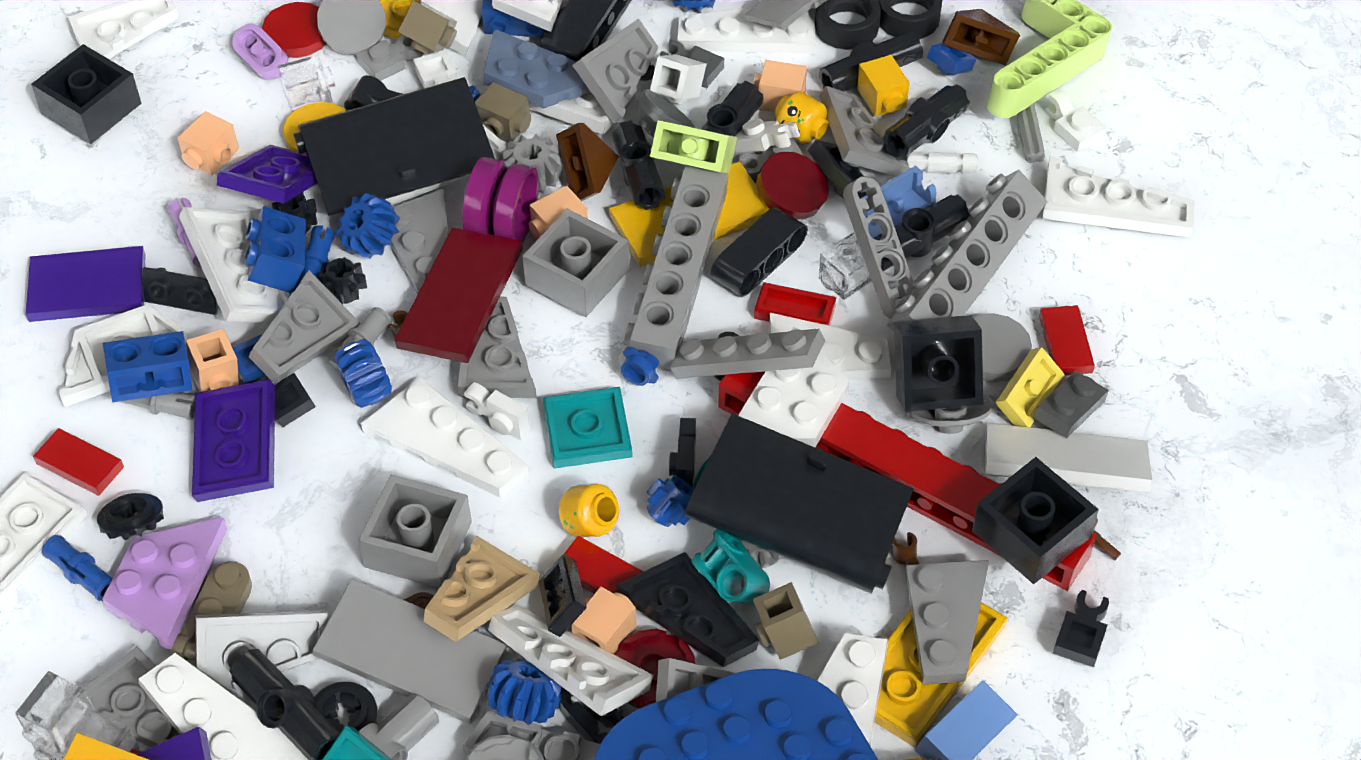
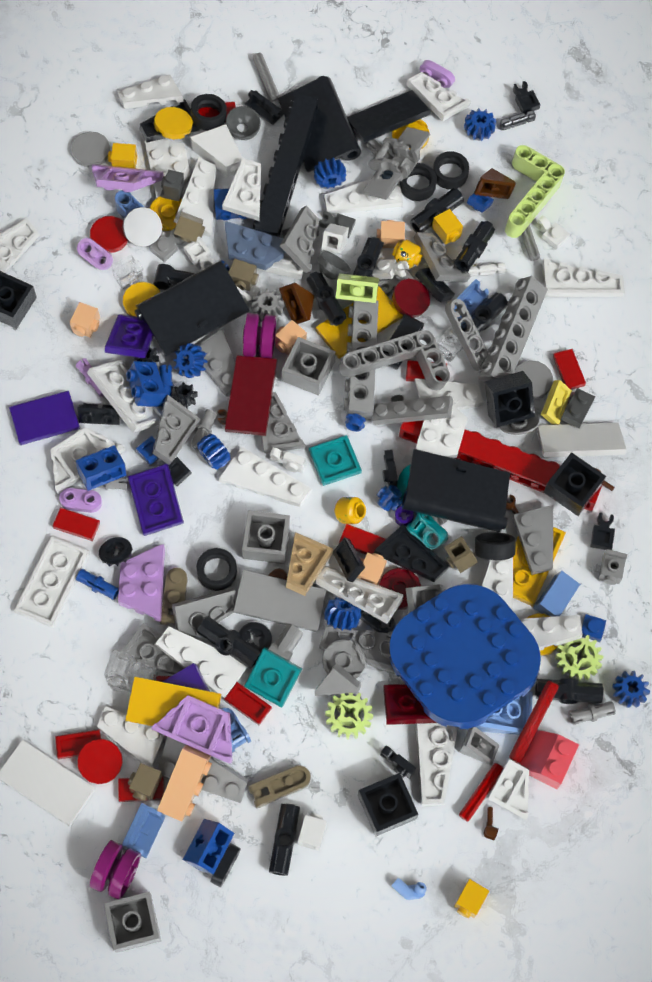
camera: 15 degrees left, 15 degrees up
(98, 421) = (79, 501): none -> lavender plate
(212, 361) = (134, 458): light nougat brick -> none
(307, 549) = (213, 554): none -> black tyre
(684, 533) = (399, 521): none -> dark purple bush
(782, 249) = (398, 354): none -> light grey beam
(856, 614) = (495, 546): none -> black tyre
(1091, 695) = (613, 559): none -> light grey brick

